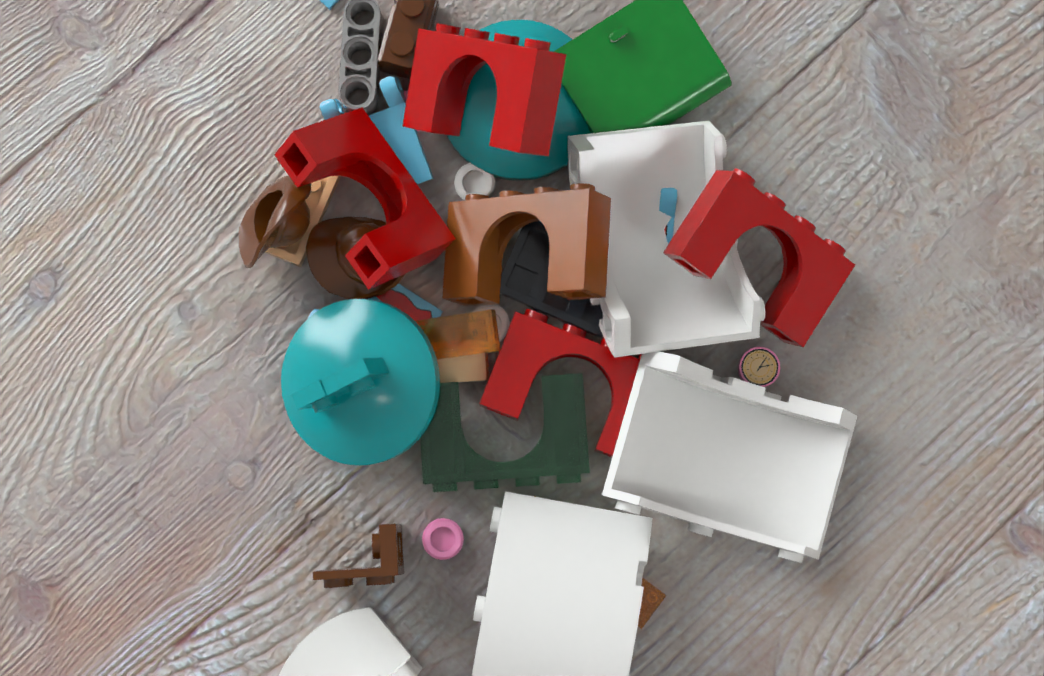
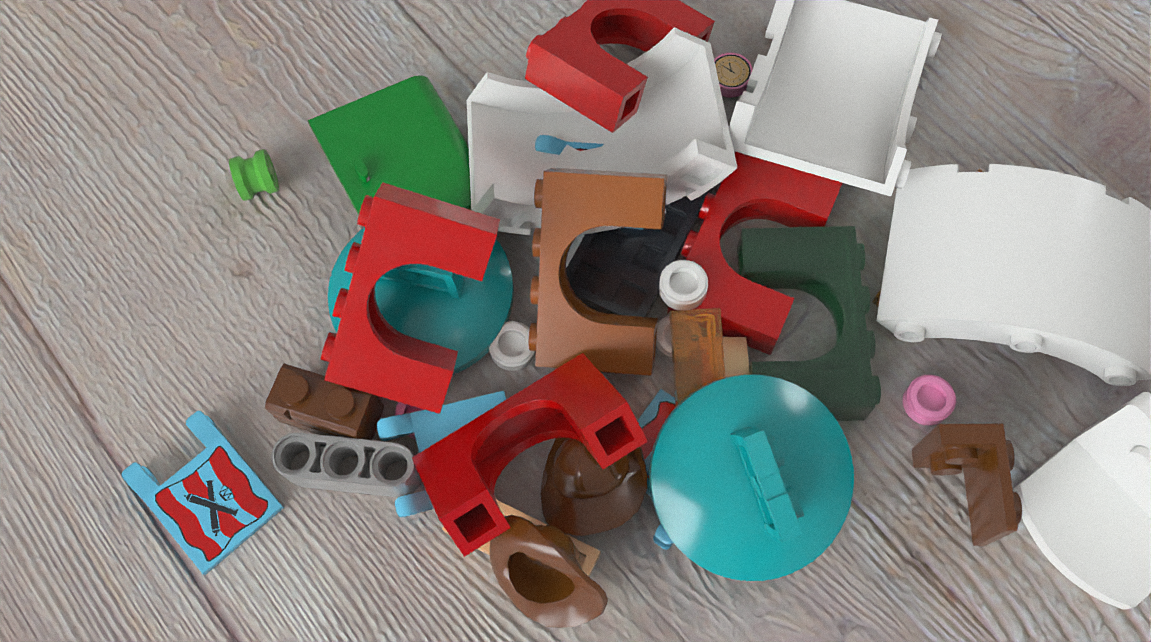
camera: 80 degrees left, 15 degrees down
(522, 321) = (683, 285): none -> white tile

